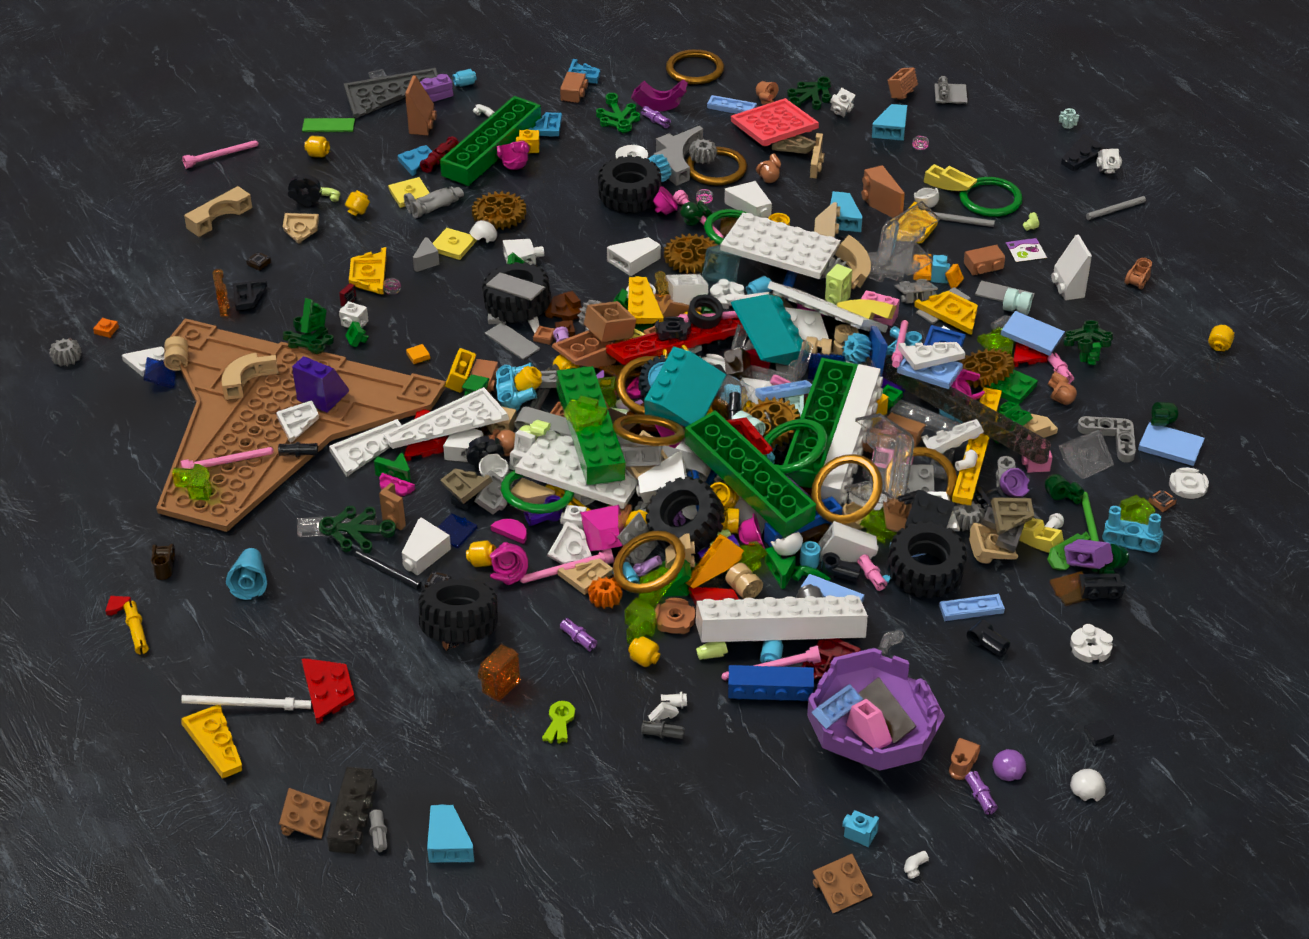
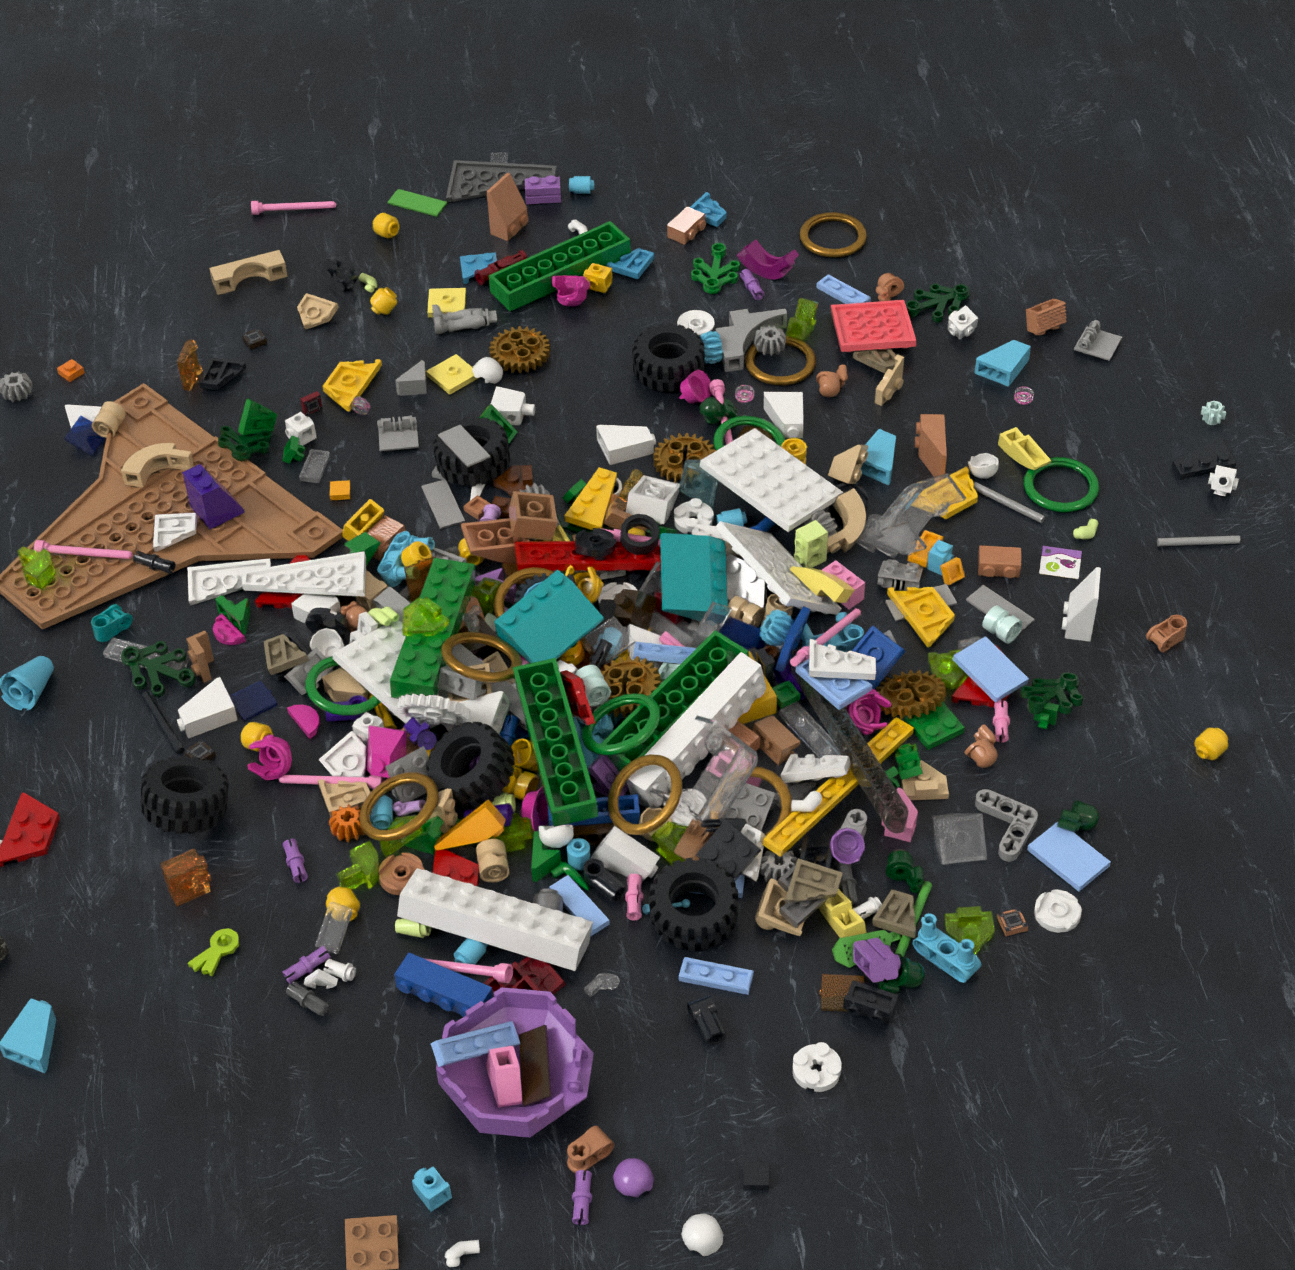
camera: 25 degrees right, 5 degrees up
(288, 508) = (109, 623): none -> teal piece
(382, 342) = (314, 466): none -> clear tile
(438, 298) = (398, 434): none -> light grey hinge
(542, 394) = (416, 576): none -> clear orange piece
(612, 411) = (471, 620): none -> clear arm
(629, 503) = (420, 734): none -> dark purple hips
(638, 478) = (433, 709): none -> white gear
(643, 706) = (306, 964): none -> medium lavender pin
(650, 669) = (334, 927): none -> clear tile
(718, 129) = (803, 322): none -> clear neon green brick
(1080, 520) = (897, 914): none -> dark tan wing

